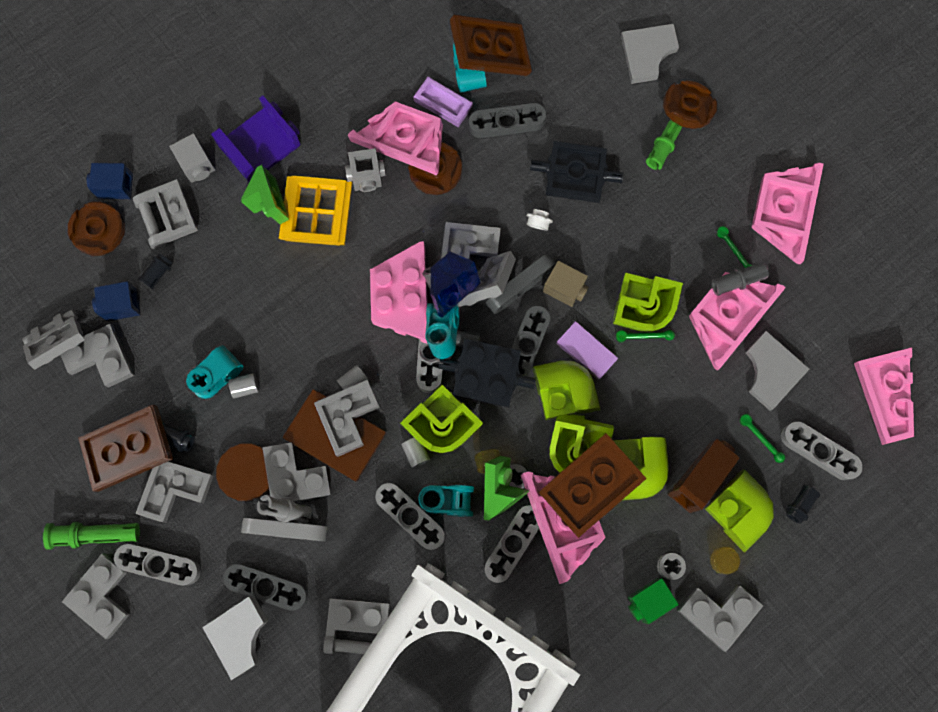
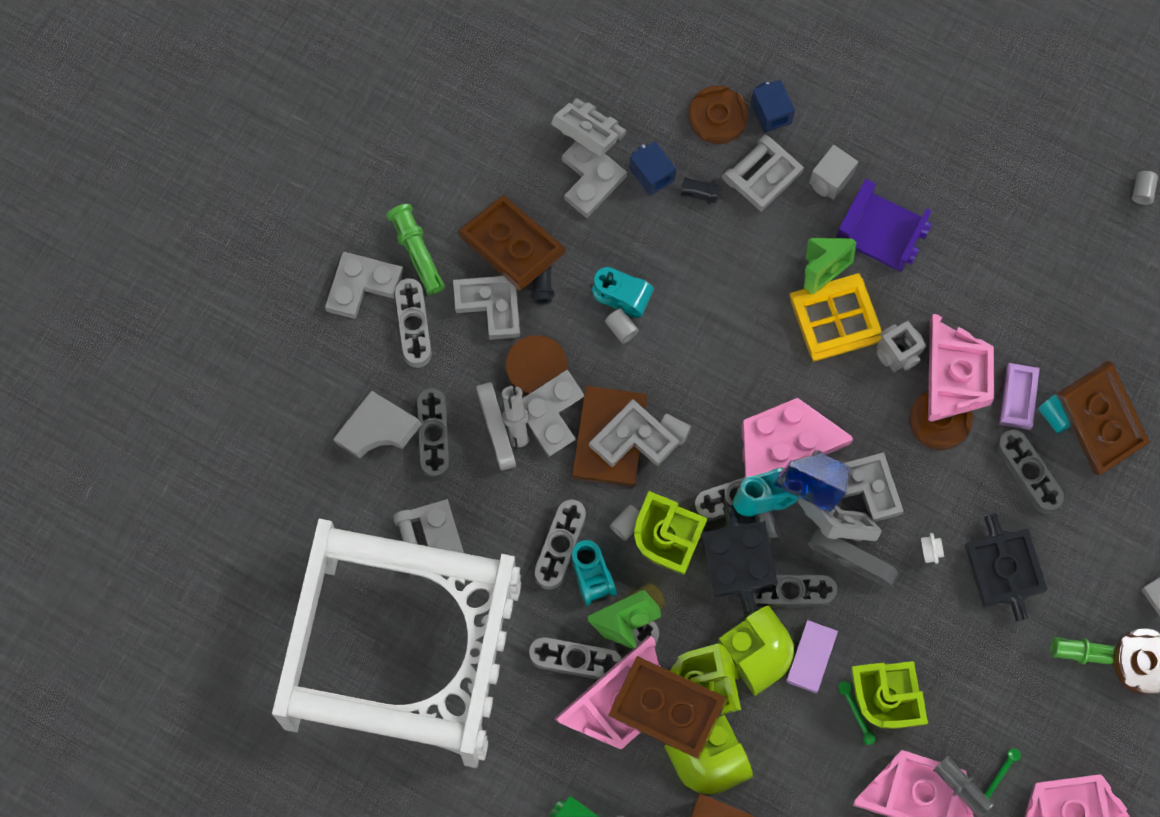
camera: 65 degrees right, 5 degrees down
(566, 284) = (873, 605): dark tan brick -> none

